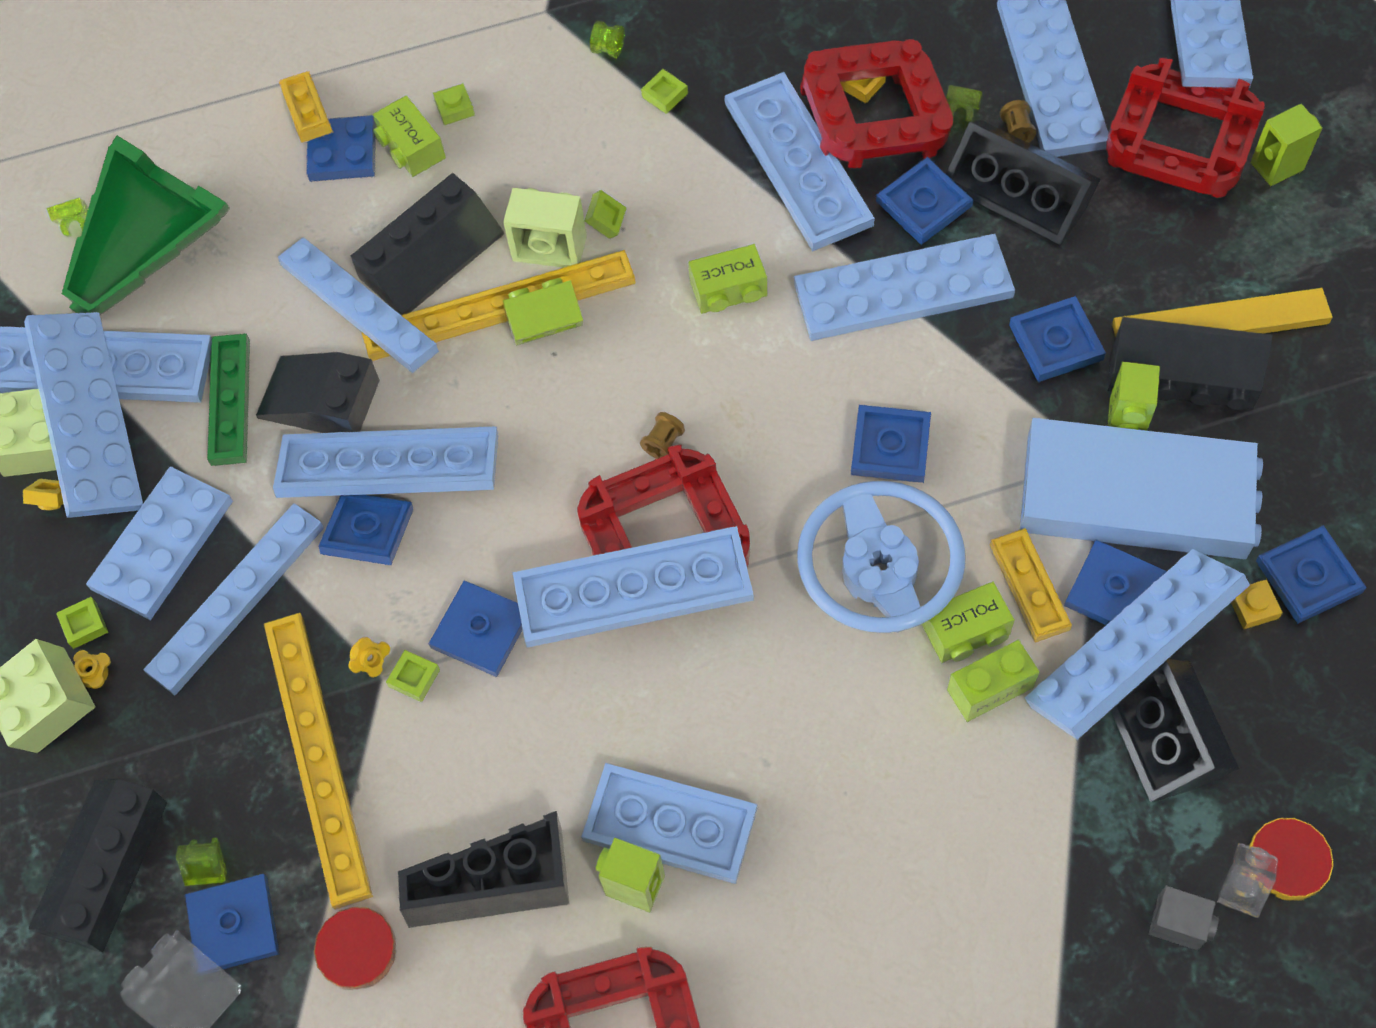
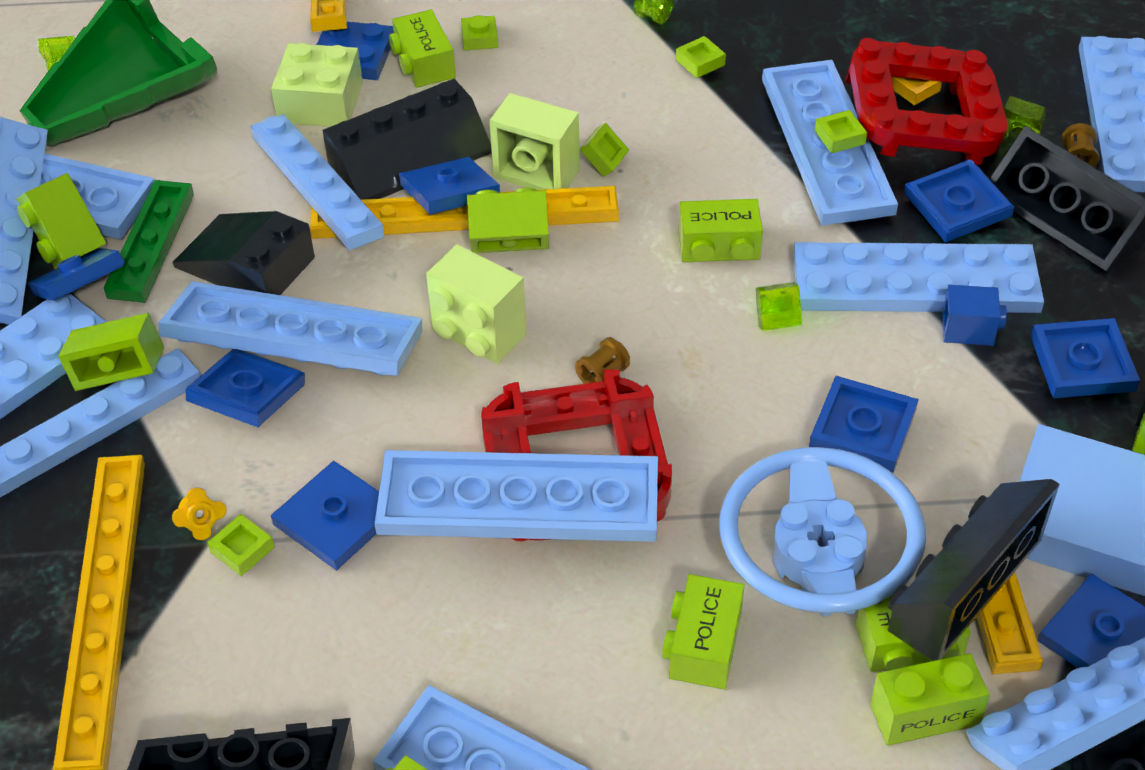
camera: 10 degrees right, 15 degrees down
(146, 405) = (59, 220): none -> lime brick
(178, 452) = (75, 273): none -> blue plate
(241, 524) = (111, 351): none -> lime brick
(325, 199) = (317, 84): none -> yellowish green brick
(478, 283) = (446, 184): none -> blue plate
(542, 406) = (477, 303): none -> yellowish green brick
(796, 346) = (778, 306): none -> clear neon green tile
(809, 663) = (705, 631): none -> lime brick
(810, 155) = (840, 131): none -> lime plate
(958, 318) = (972, 315): none -> blue brick
(1005, 568) = (971, 566): none -> black slope

